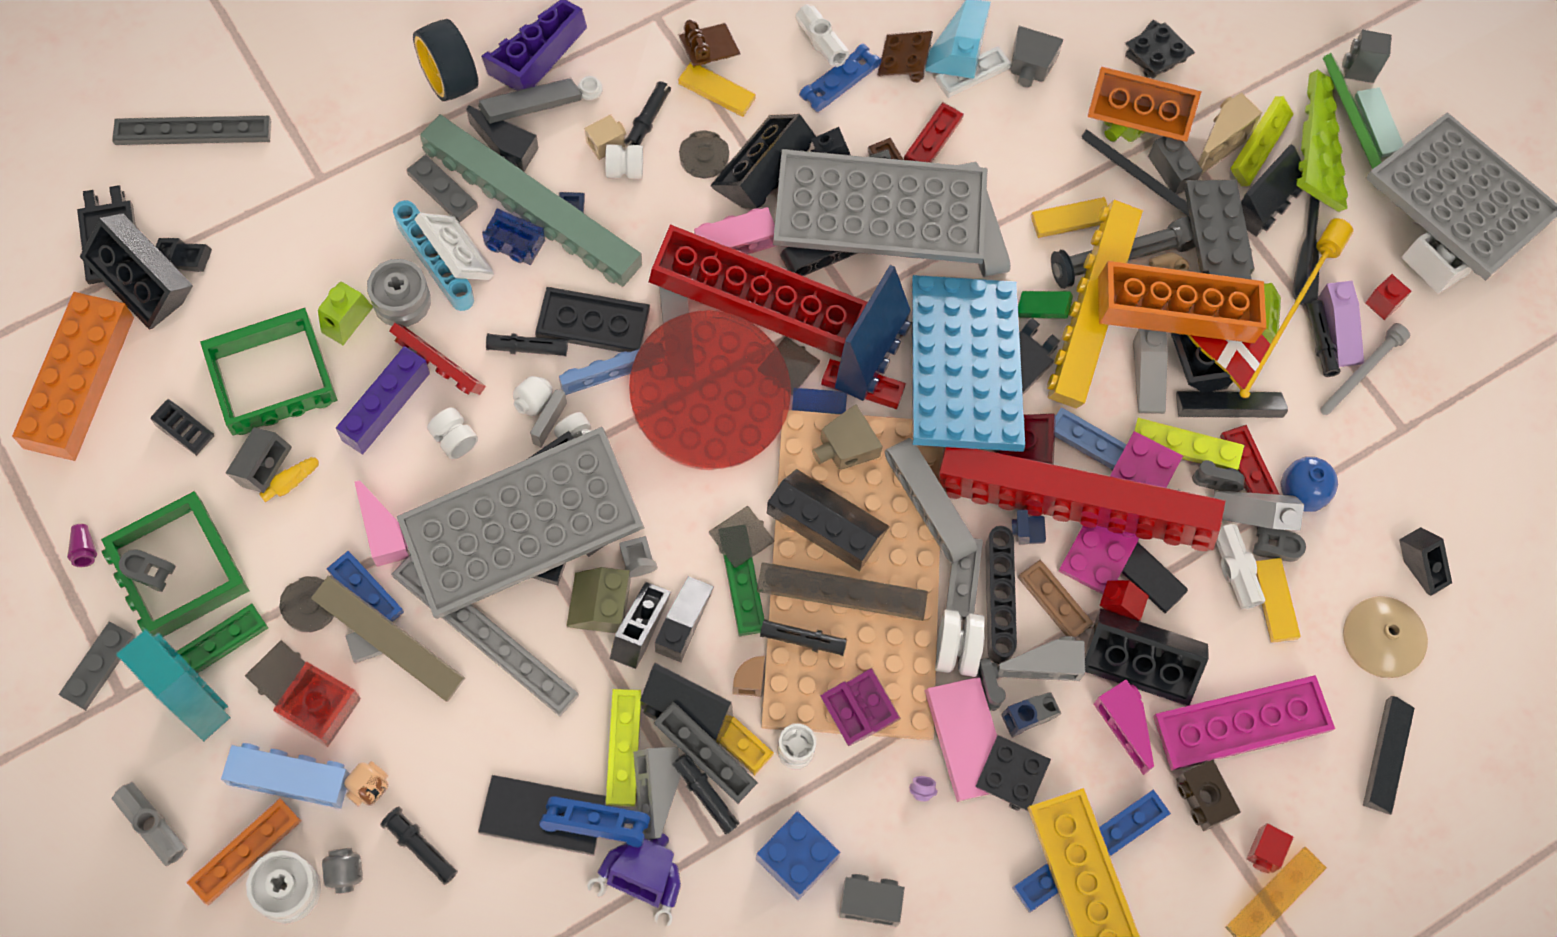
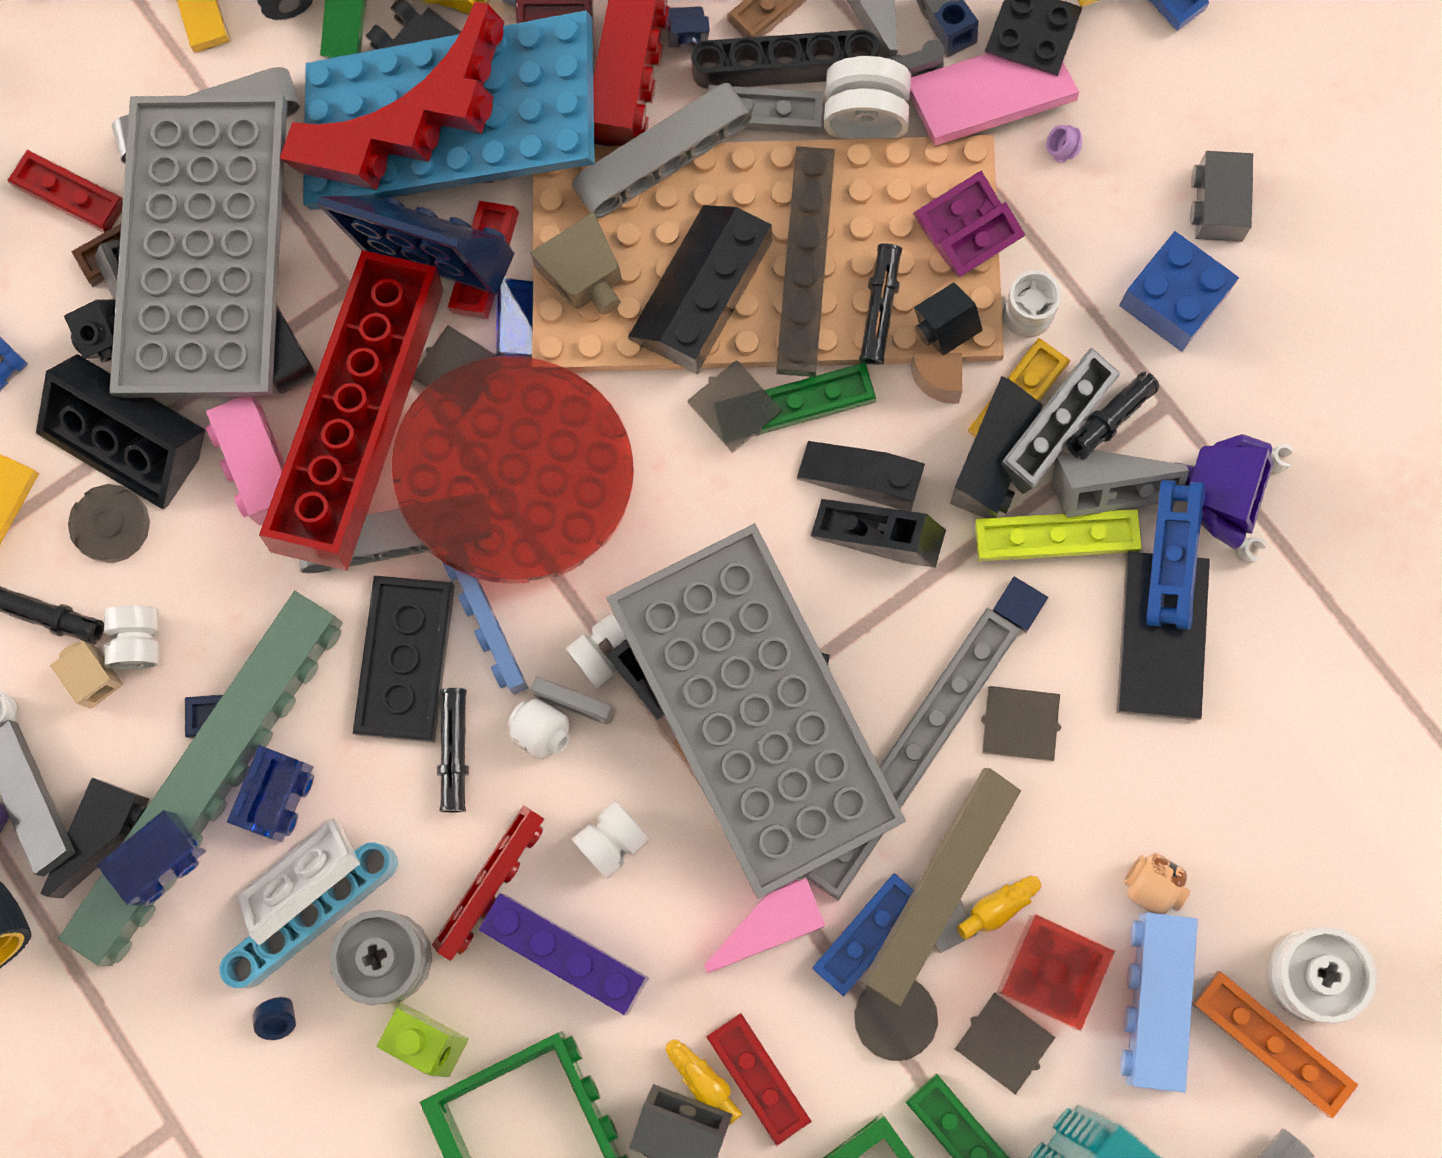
camera: 80 degrees left, 10 degrees up
(284, 514) = (759, 1079): none -> red tile
(342, 870) = (1282, 898): flat silver head -> none
(369, 678) = (999, 907): none -> yellow piece
(374, 233) = (274, 1018): none -> dark blue tile
(410, 837) = (1221, 811): black pin -> none
(442, 188) = (186, 923): dark grey plate -> none
(476, 162) = (152, 859): none -> clear blue hinge
(494, 709) = (1021, 723): none -> clear smoke piece
(578, 717) = (1020, 604): none -> dark blue tile
(599, 599) = (849, 593): olive slope -> none
(637, 557) = (785, 546): light grey tile -> none
(785, 679) = (947, 319): none -> black brick
(951, 333) = (409, 126): none -> red arch

